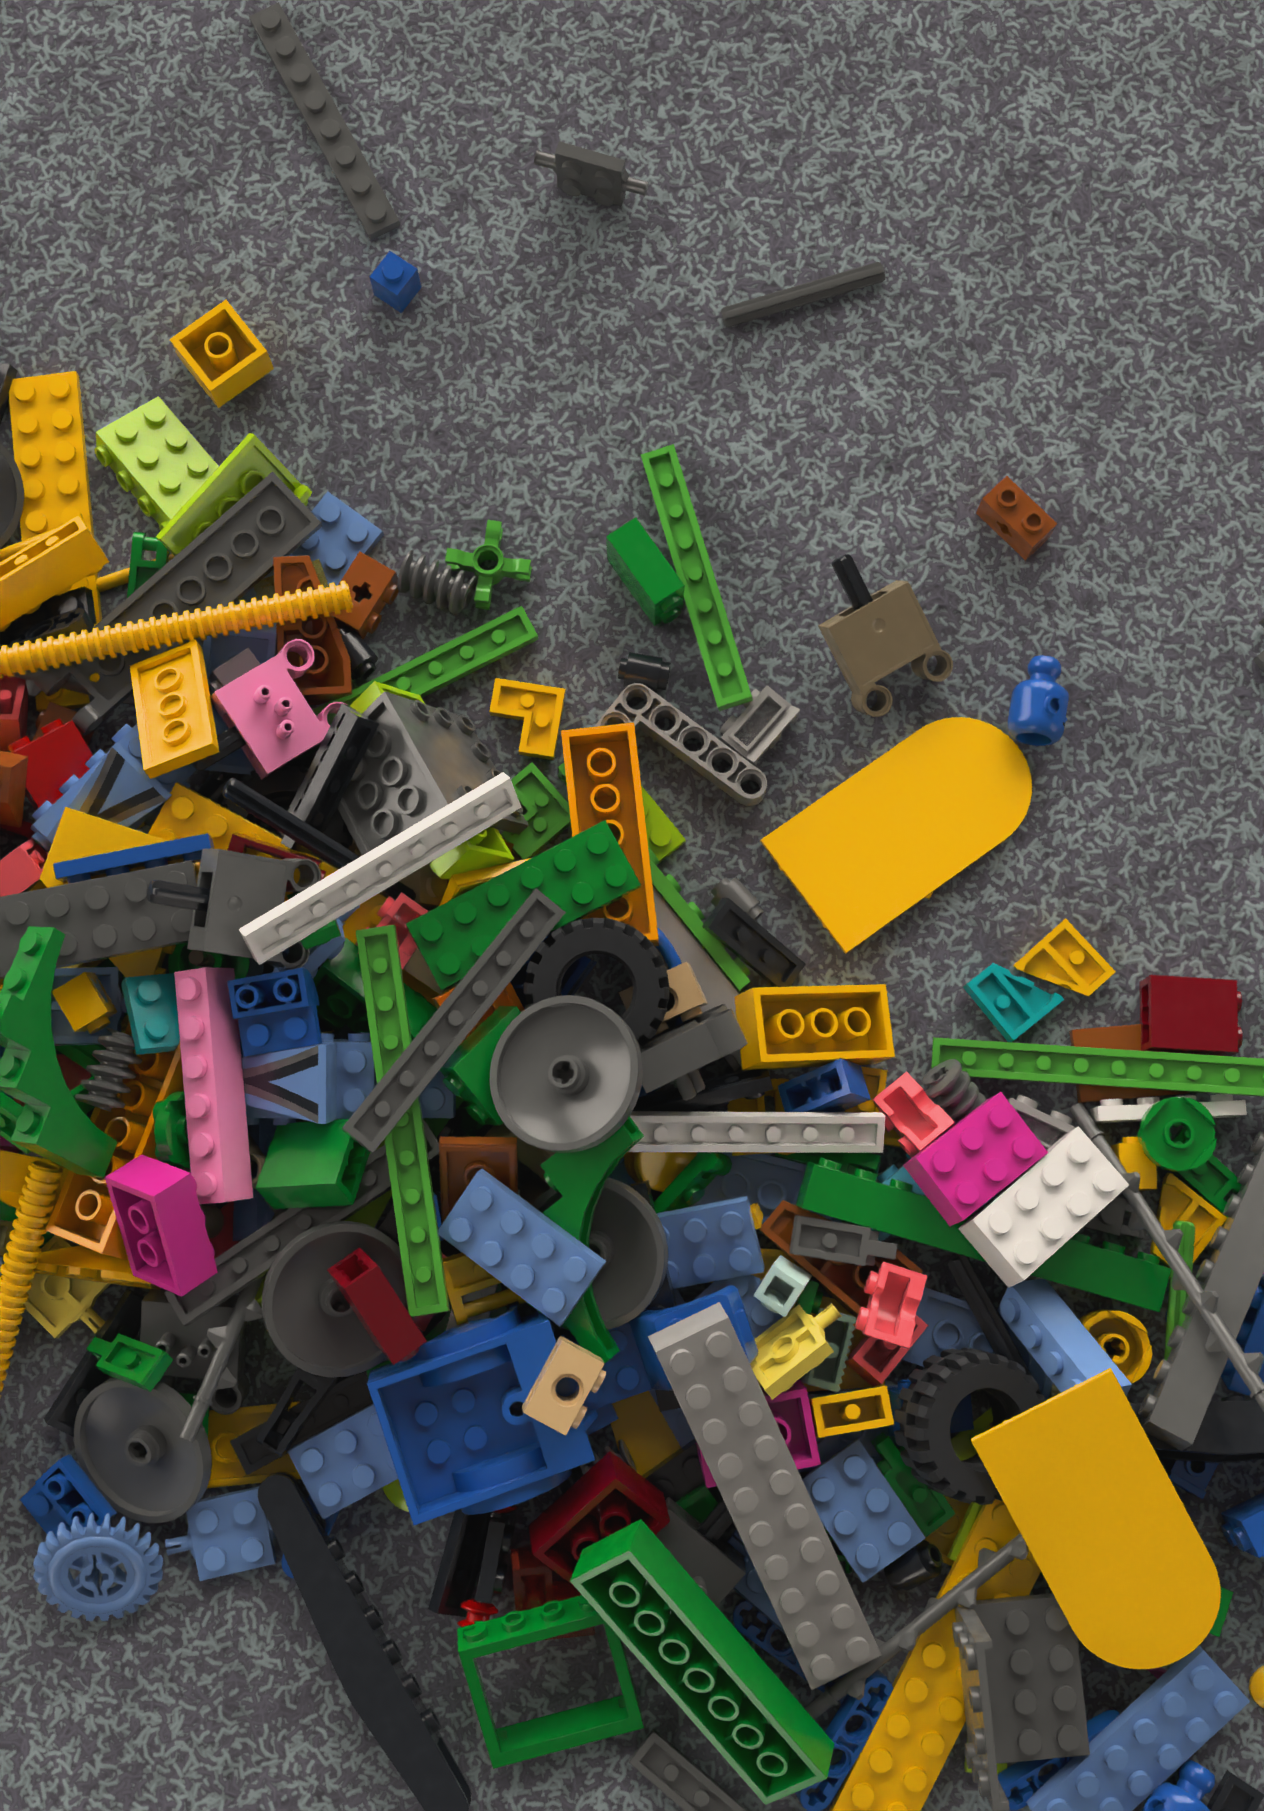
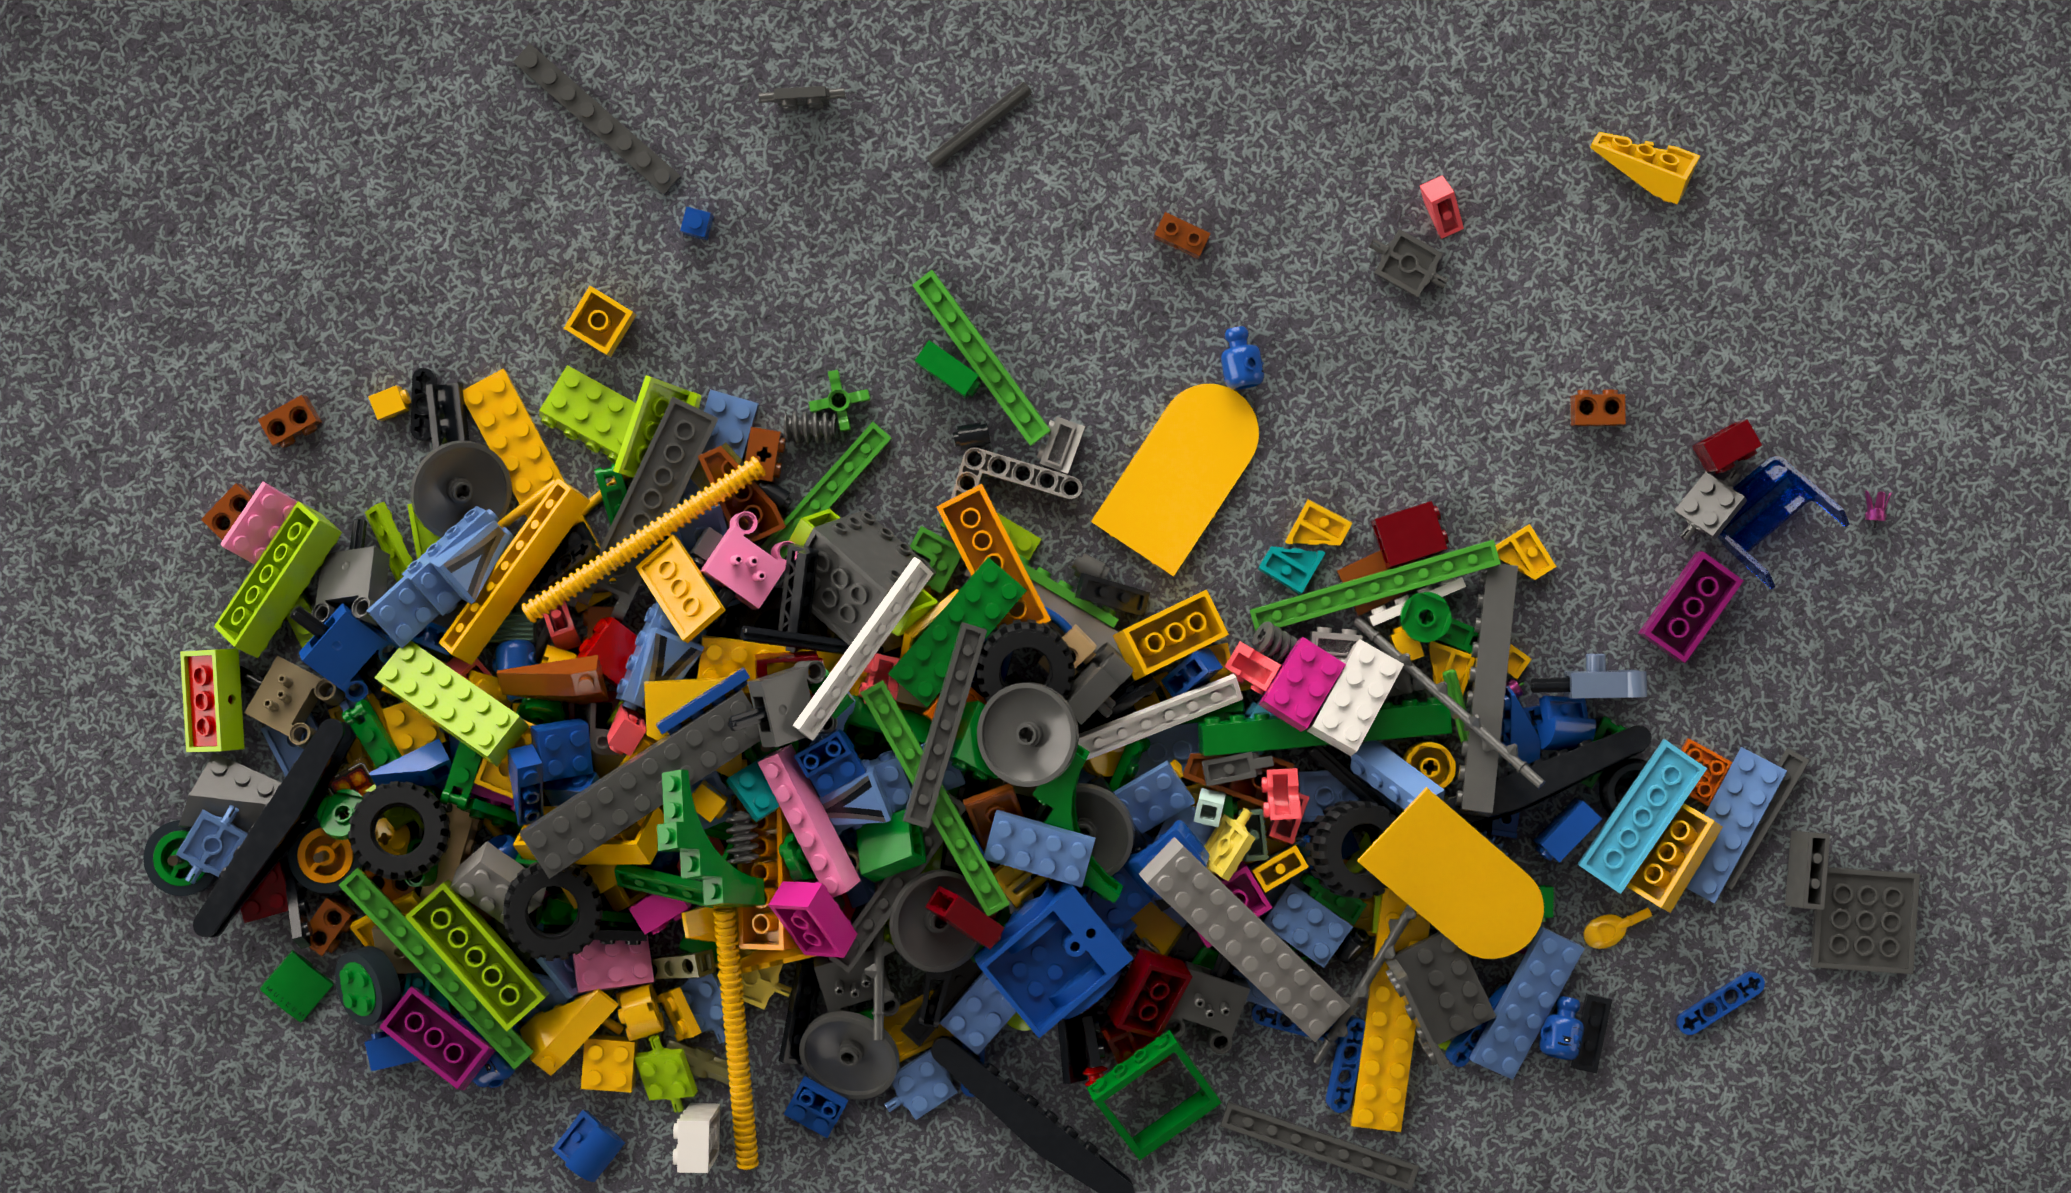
camera: 20 degrees left, 10 degrees up
(94, 1552) = (837, 1131): medium blue gear -> none
(130, 1360) = (822, 1006): green hinge -> none
(538, 708) = (912, 487): yellow plate -> none
(564, 1361) = (1093, 908): tan brick -> none
(703, 1662) = (1243, 1051): green brick -> none
(880, 637) = (1120, 357): dark tan piece -> none

